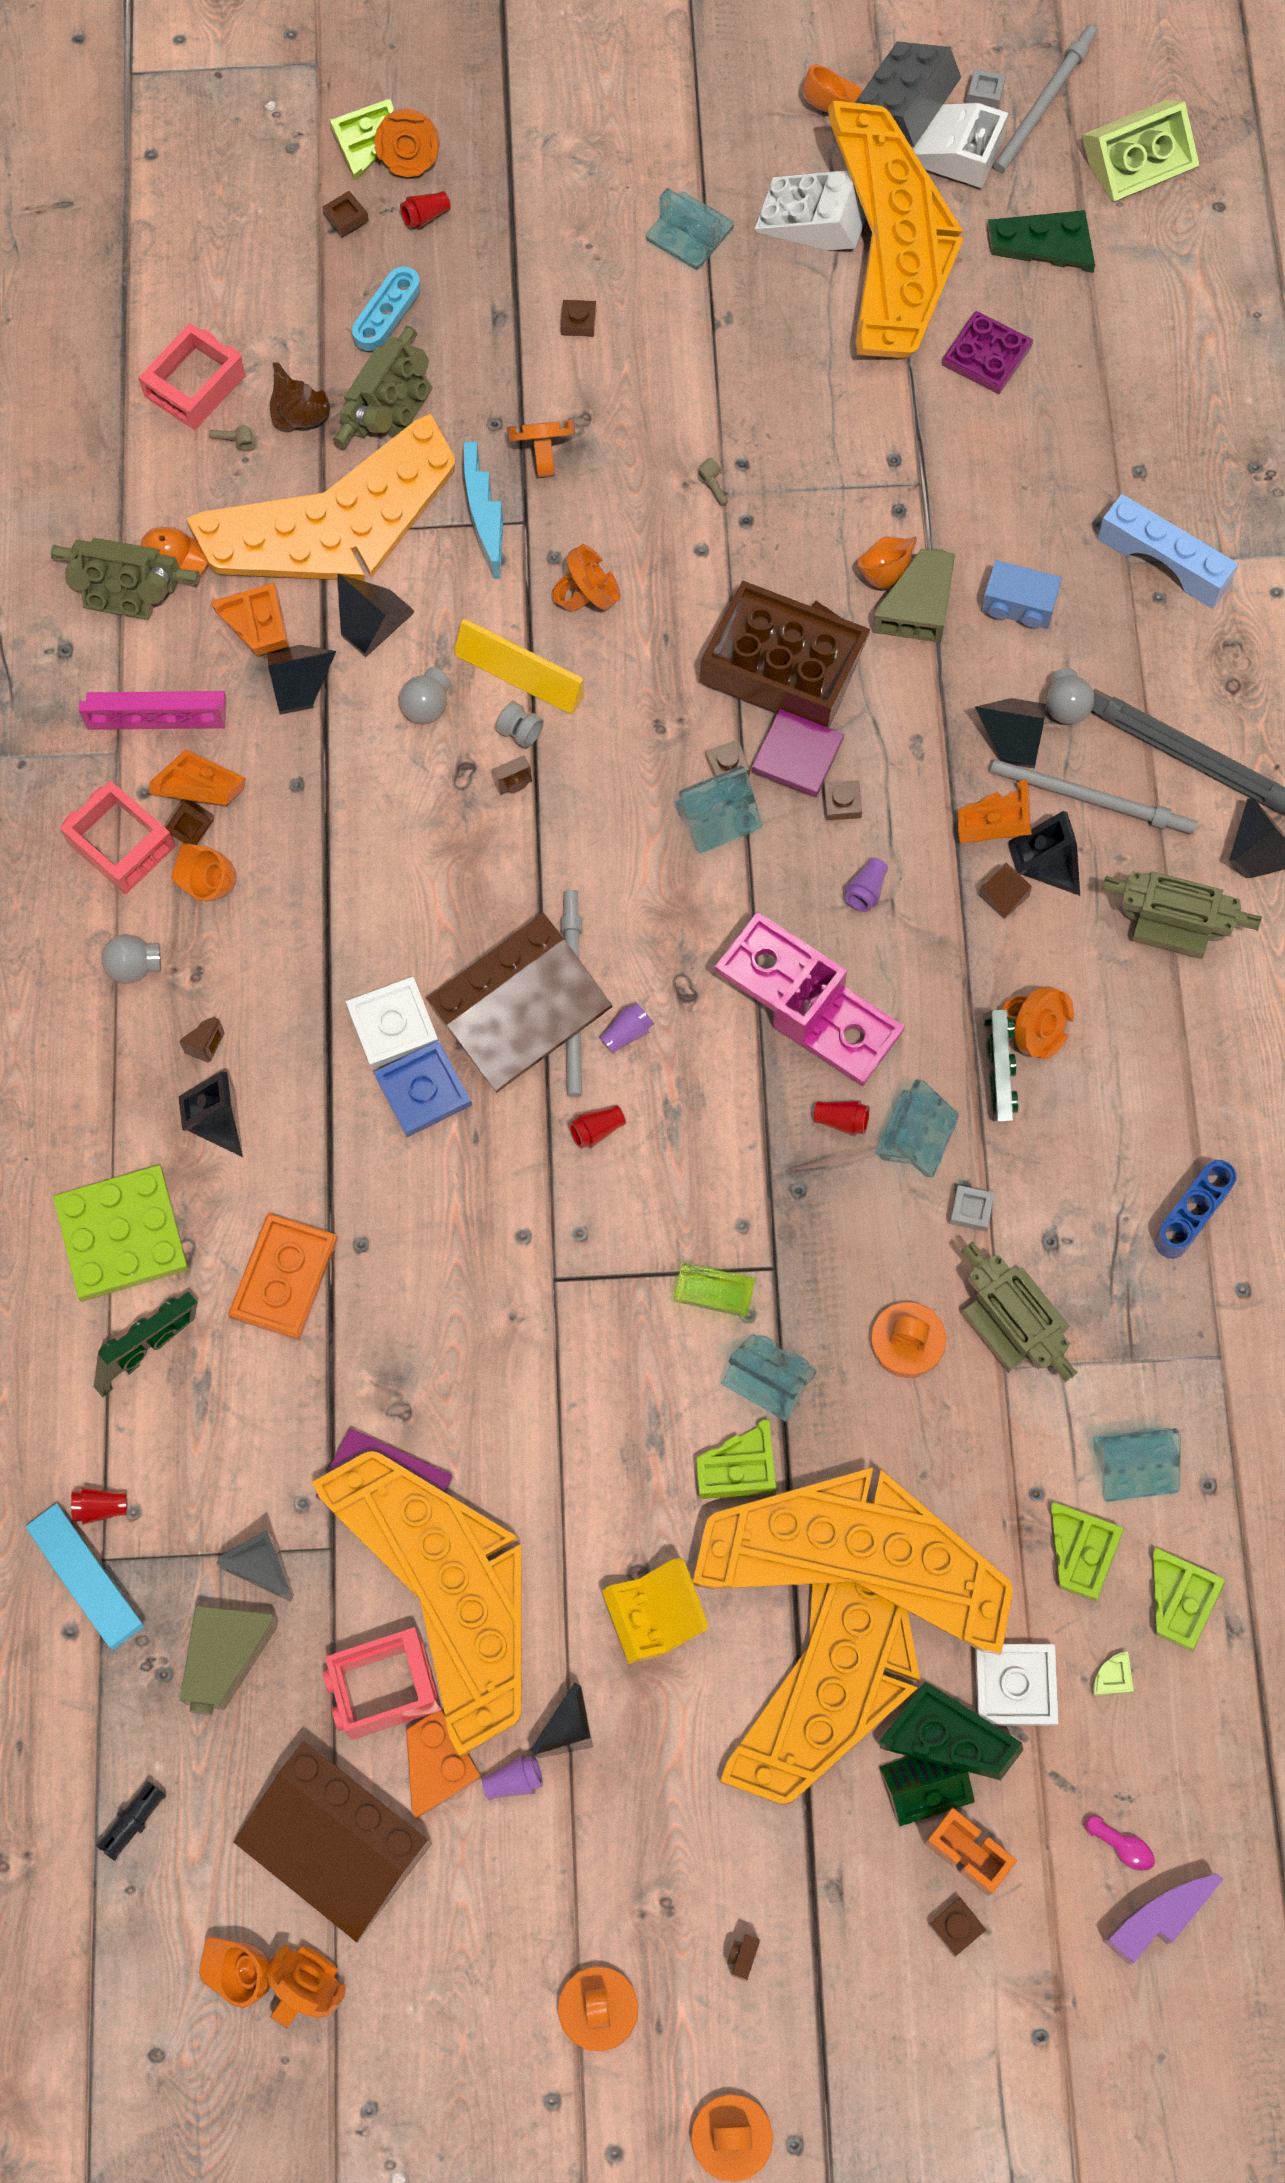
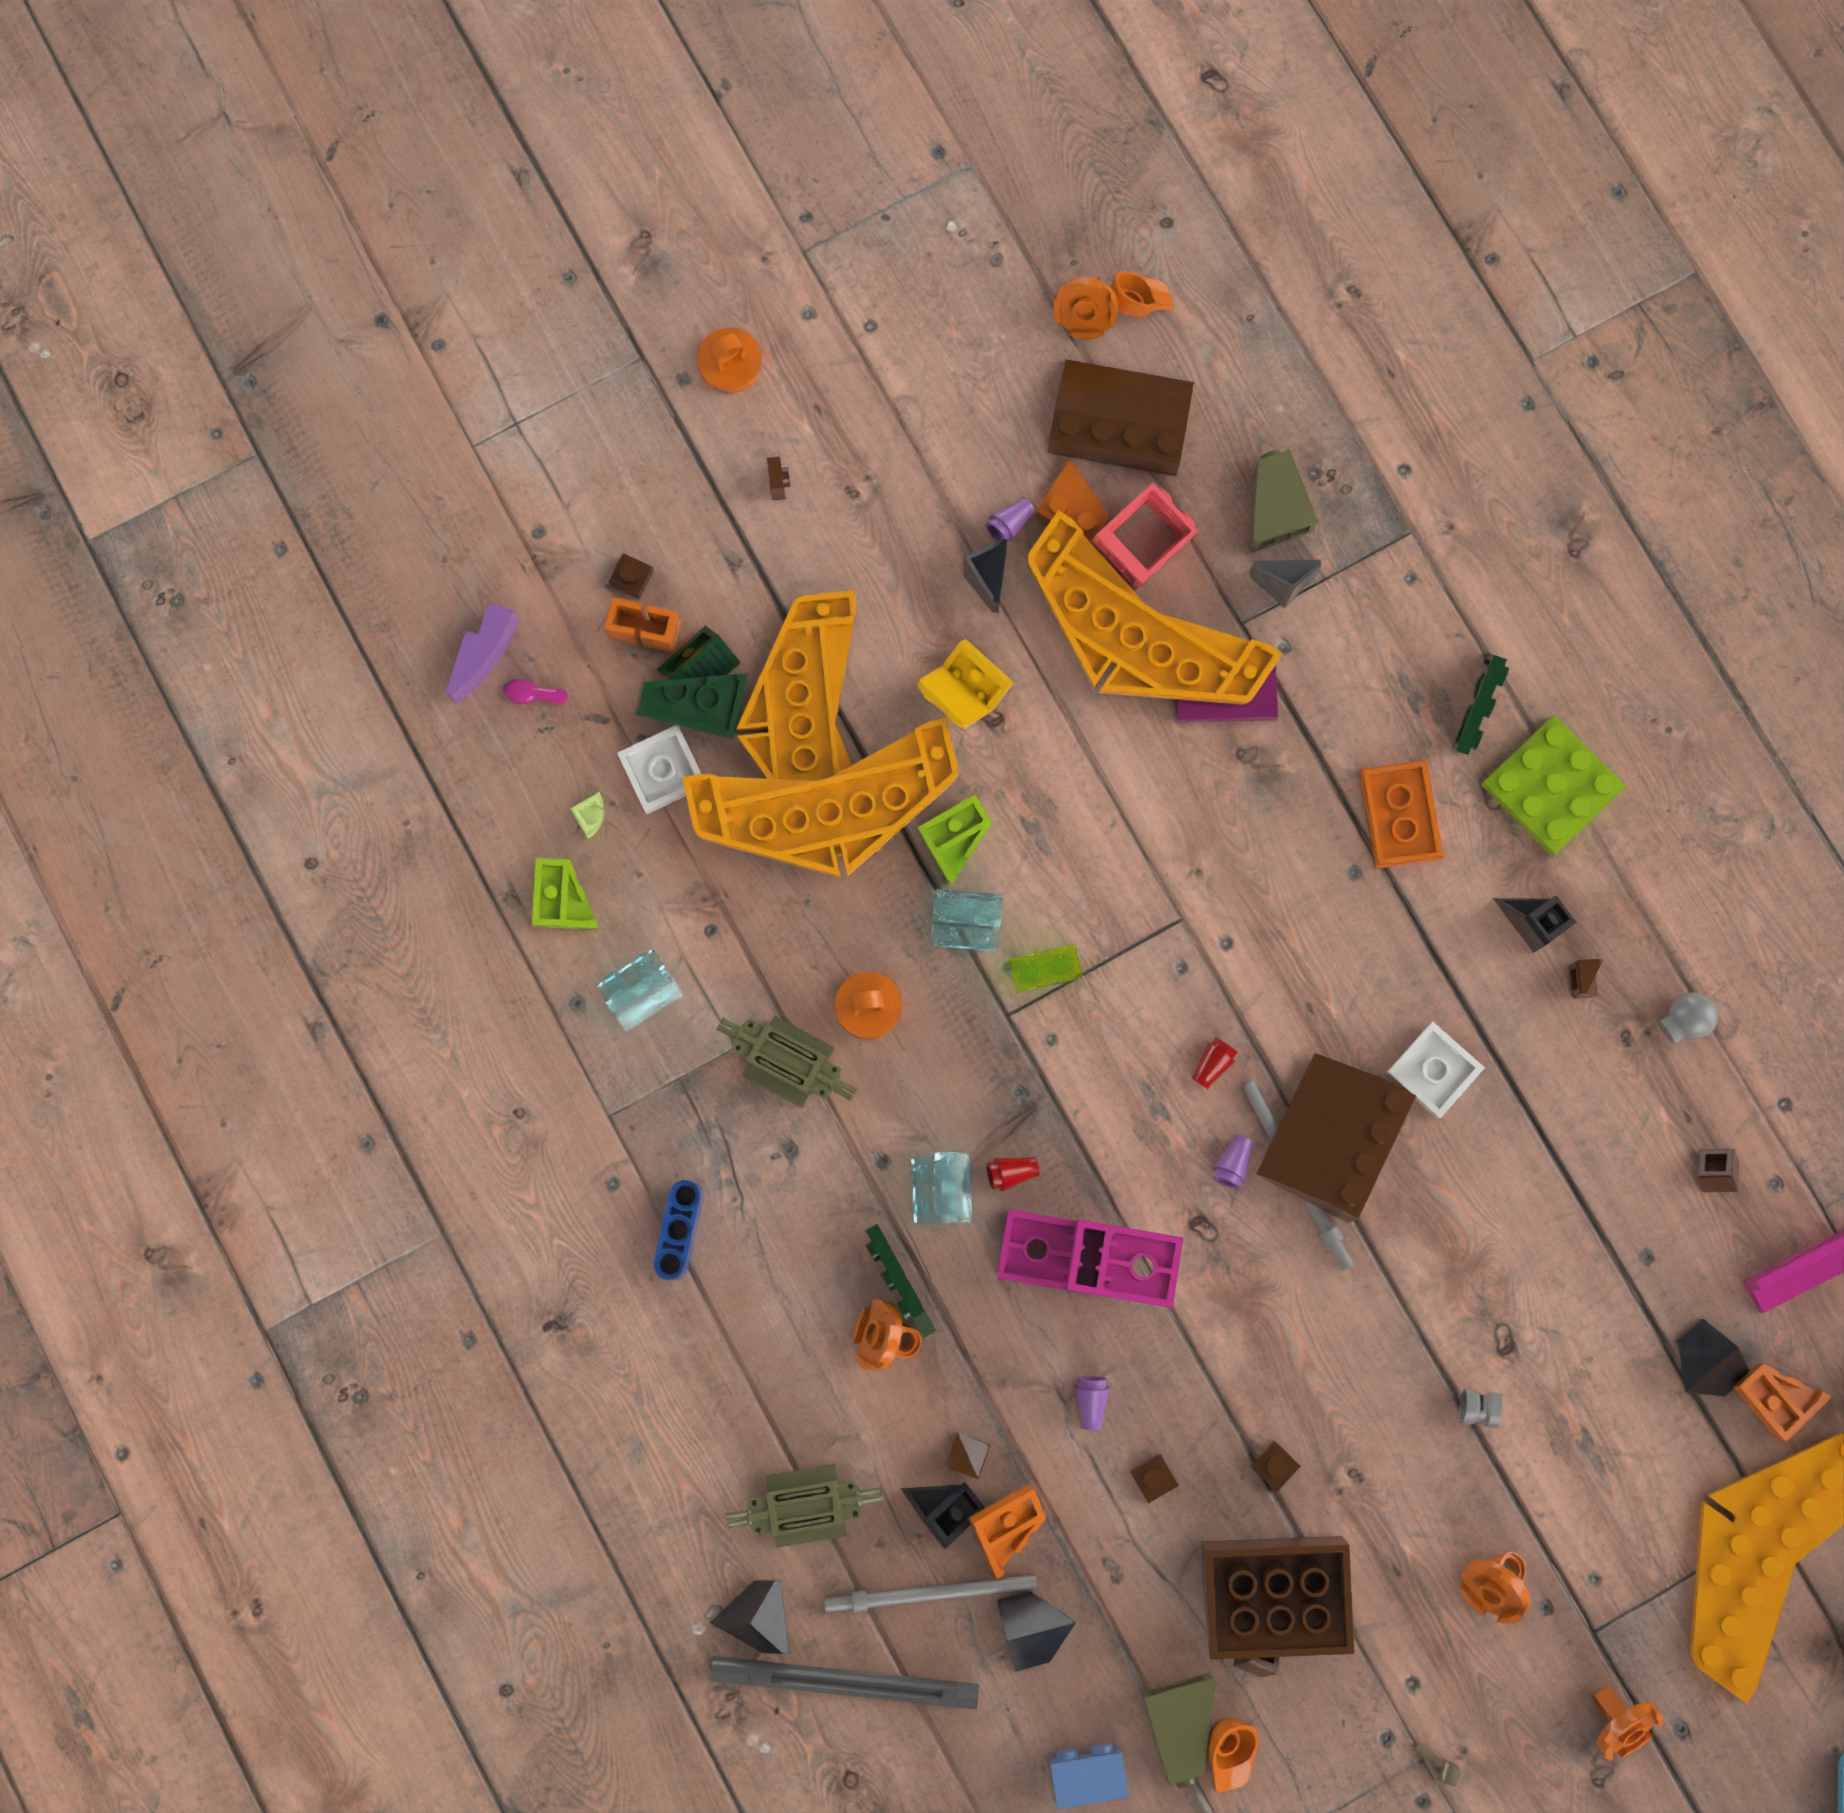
camera: 155 degrees right, 10 degrees up
(84, 1577) = (1416, 506): medium azure slope -> none
(97, 1505) = (1439, 565): red cone -> none
(130, 1820) = (1277, 359): black pin -> none
(139, 859) = (1737, 1114): coral window -> none
(197, 780) = (1734, 1209): orange wing -> none
(203, 872) = (1674, 1125): orange cap -> none
(369, 613) = (1680, 1458): black slope -> none
(386, 390) = (1803, 1706): olive piece -> none
(422, 1088) = (1377, 1024): plate -> none
(425, 696) = (1581, 1394): light grey piece -> none
(485, 514) = (1630, 1612): medium azure slope -> none
(512, 775) = (1458, 1353): reddish brown plate -> none
(519, 667) = (1513, 1468): yellow slope -> none
(598, 2009) = (867, 397): orange tile -> none
(719, 809) = (1258, 1408): clear light blue bracket -> none
(798, 753) = (1216, 1504): tile -> none
(972, 1208) = (866, 1141): light grey plate -> none
(1069, 697) = (995, 1683): light grey piece -> none
(1083, 1550) = (653, 898): lime wing -> none

